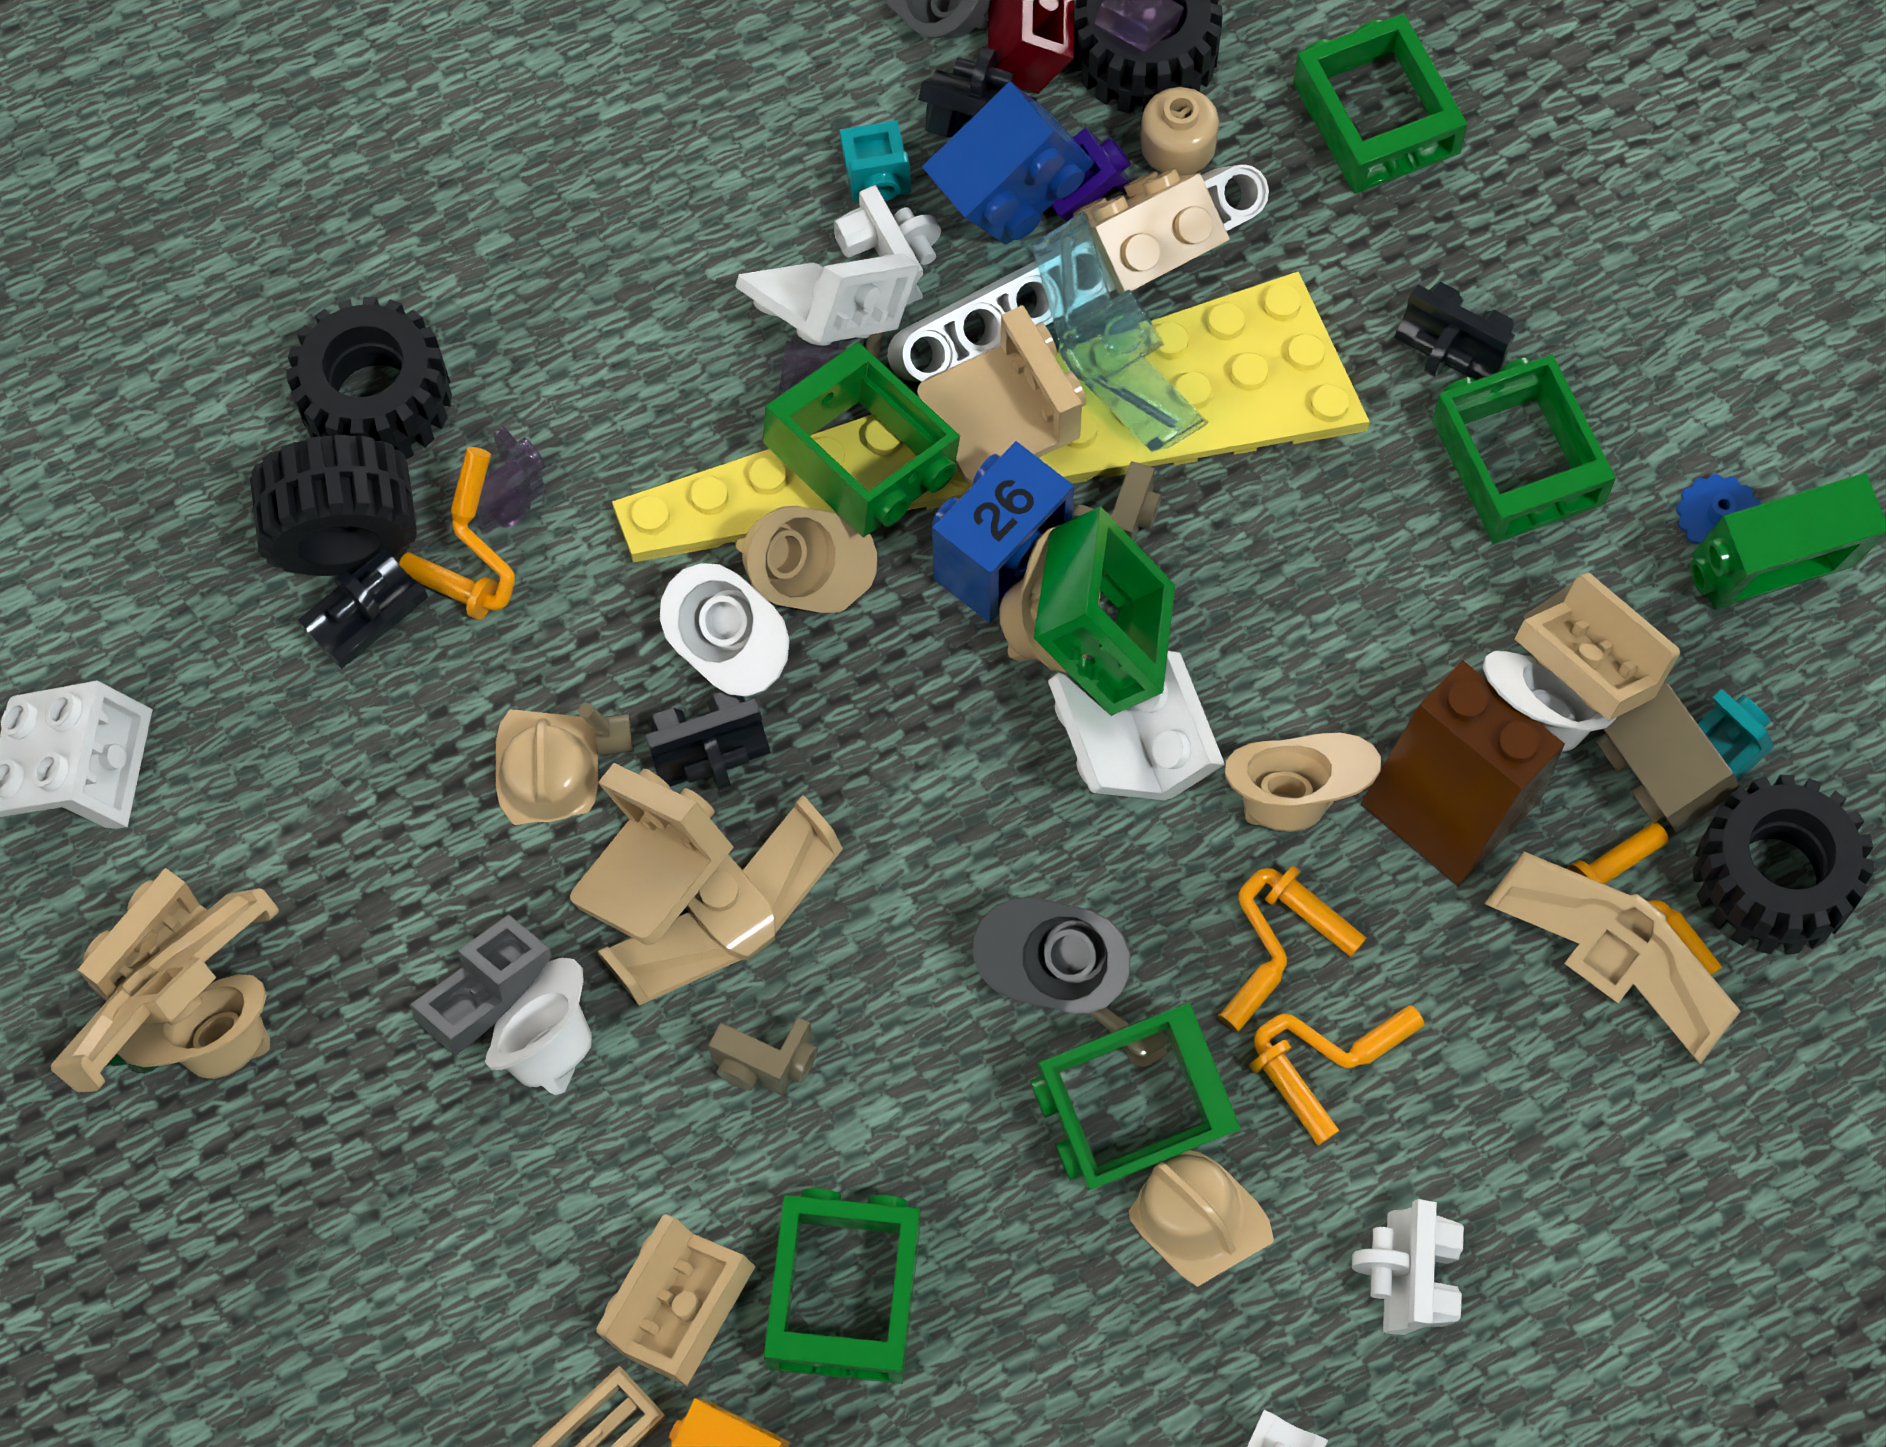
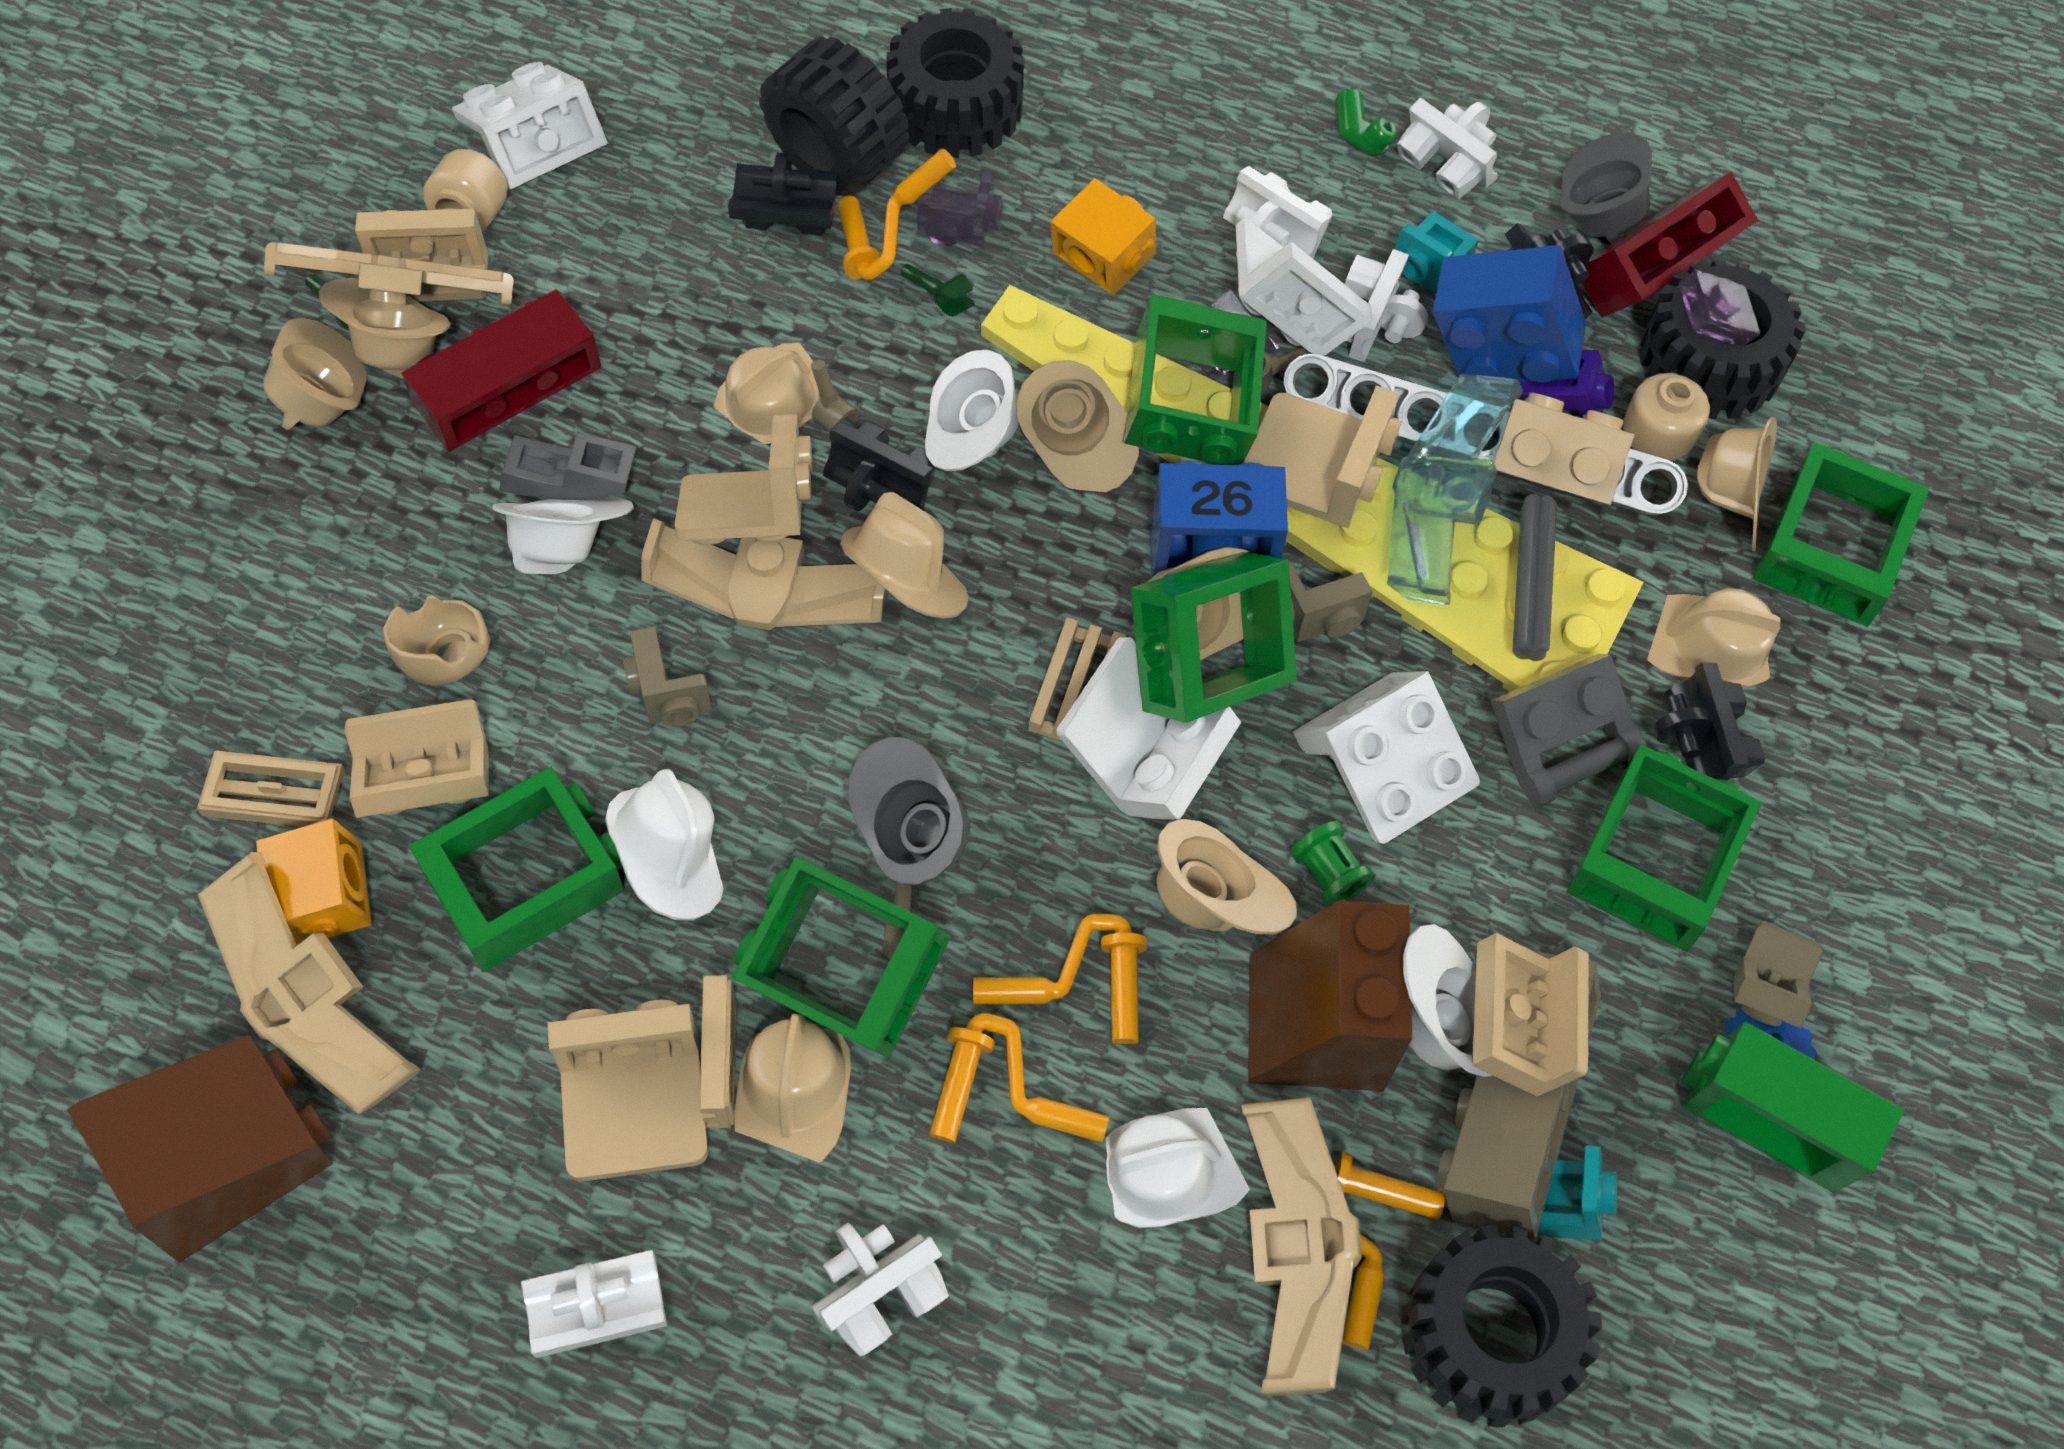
camera: 45 degrees right, 5 degrees down
(105, 864) = (466, 182): none -> tan head
(200, 1127) = (313, 374): none -> tan piece
(331, 967) = (502, 369): none -> dark red brick
(578, 556) = (949, 296): none -> dark green hand
(592, 1198) = (418, 636): none -> tan hair
(636, 391) = (1104, 236): none -> light orange head
(700, 115) = (1353, 127): none -> green arm
(734, 247) = (1278, 211): none -> white hips
(761, 63) = (1457, 137): none -> white hips
(813, 781) = (905, 555): none -> tan piece
(915, 1157) = (667, 846): none -> white piece
(1000, 701) = (1091, 640): none -> tan tile
(1112, 1339) = (630, 1090): none -> tan bracket
(1132, 1247) = (718, 1052): none -> tan tile
(1238, 344) = (1535, 578): none -> dark grey axle
(1271, 129) = (1737, 468): none -> tan piece
(1283, 563) = (1394, 752): none -> white bracket
(1344, 685) = (1332, 863): none -> green bush
(1360, 424) = (1559, 711): none -> dark grey plate
(1382, 263) = (1722, 629): none -> tan piece
(1481, 994) = (1171, 1169): none -> white piece
(1678, 465) = (1776, 975): none -> dark tan bracket

